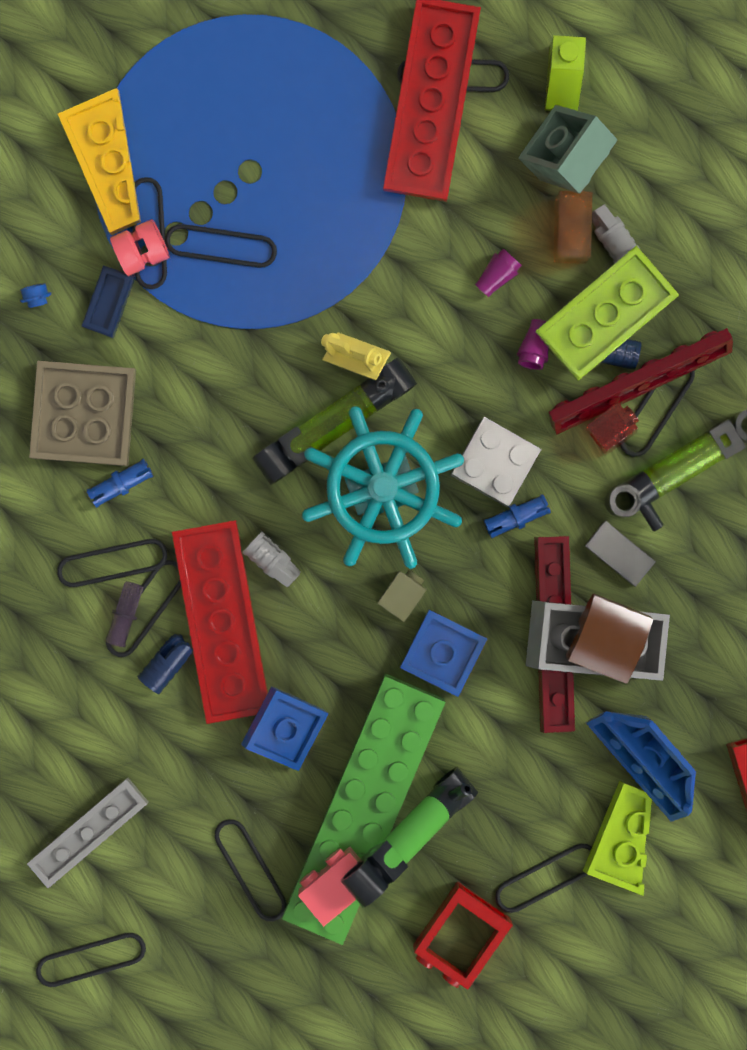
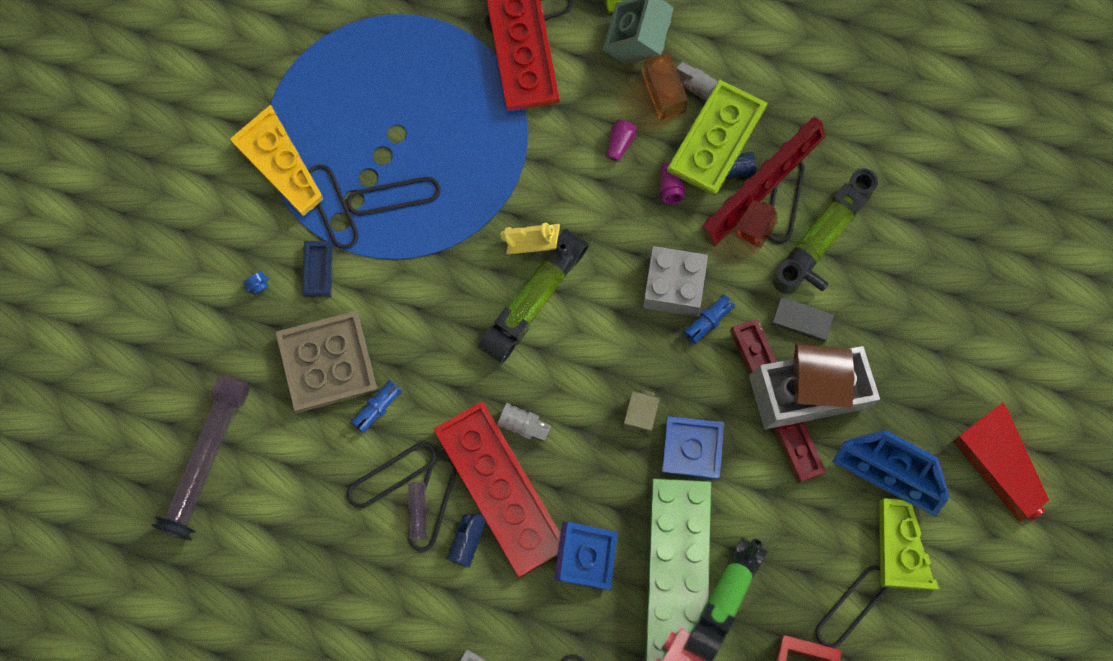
camera: 25 degrees left, 15 degrees down
(129, 252) = (321, 219): coral wheel -> none
(383, 485) = (595, 328): teal piece -> none

